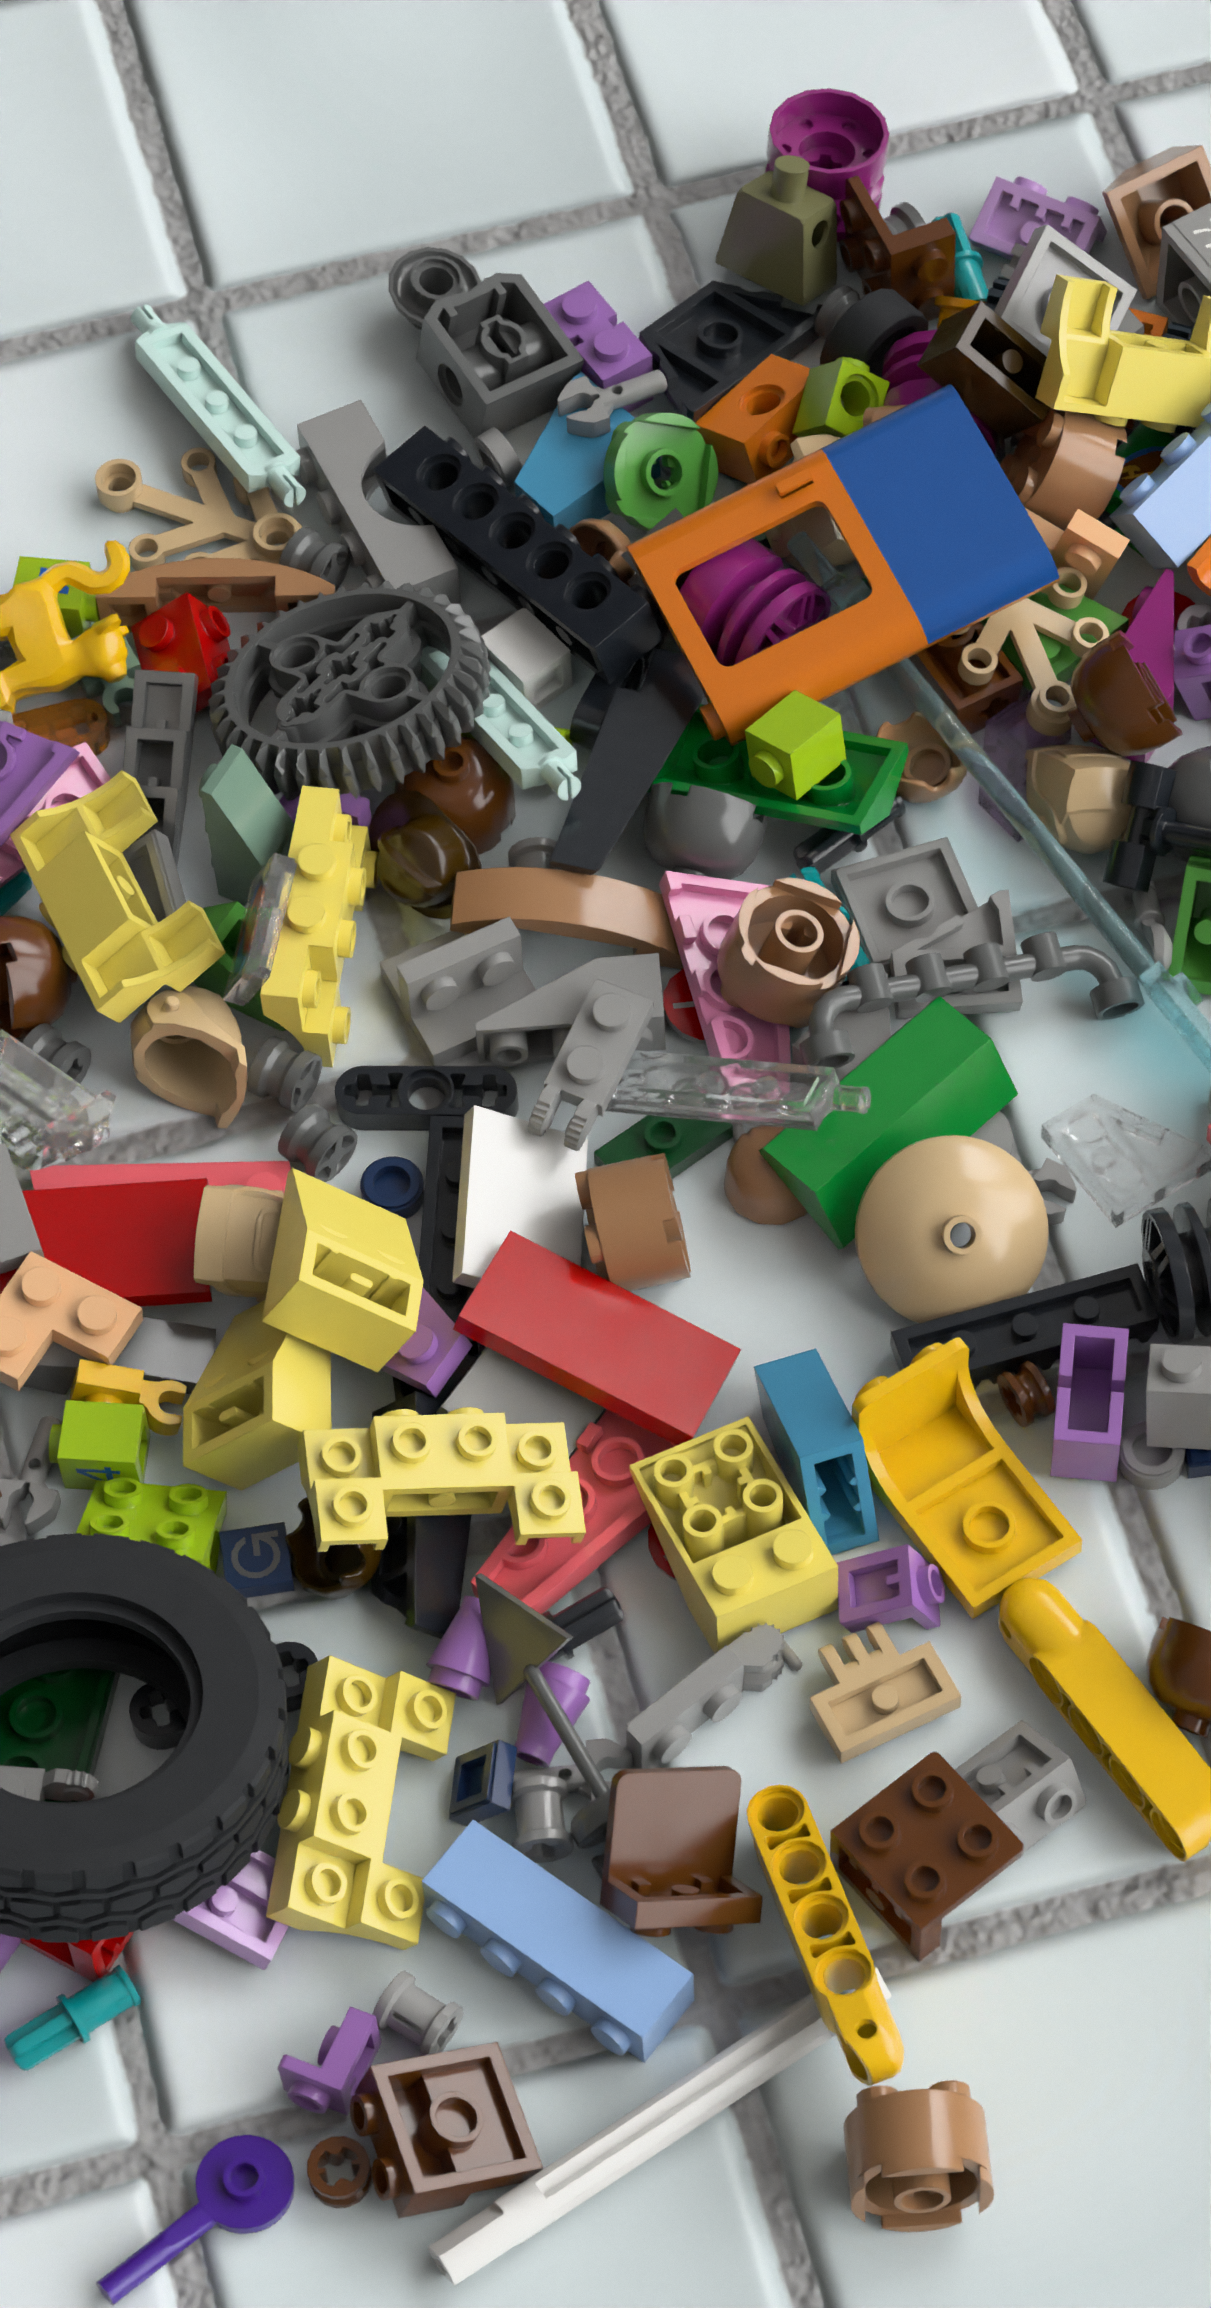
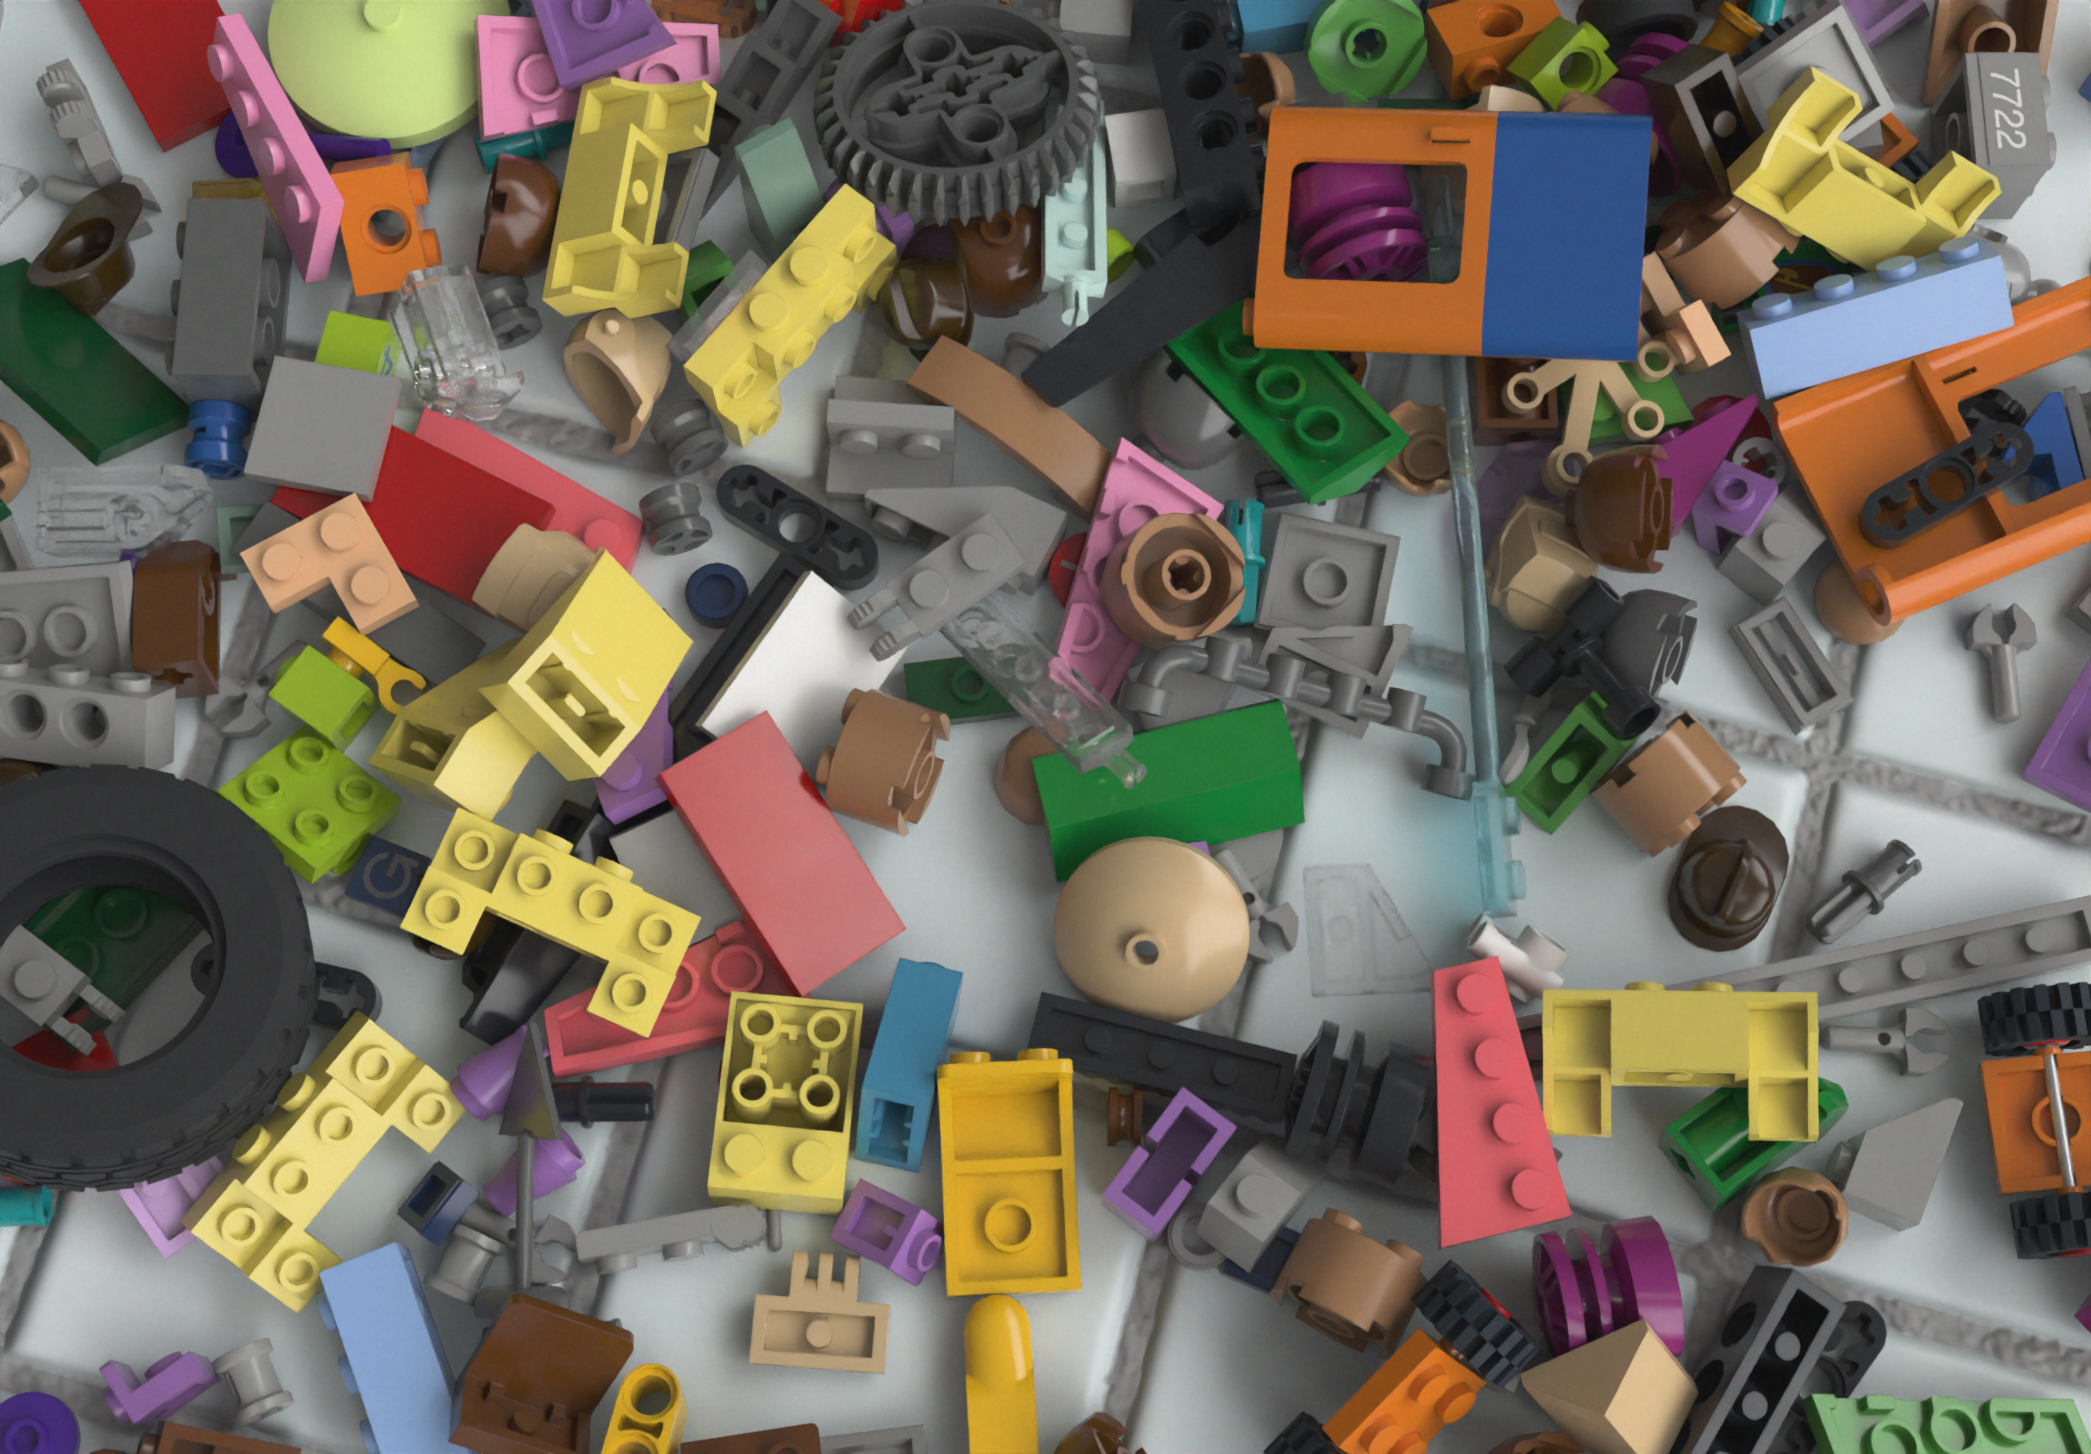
camera: 25 degrees right, 15 degrees up
(795, 745) = (1303, 385): lime brick -> none

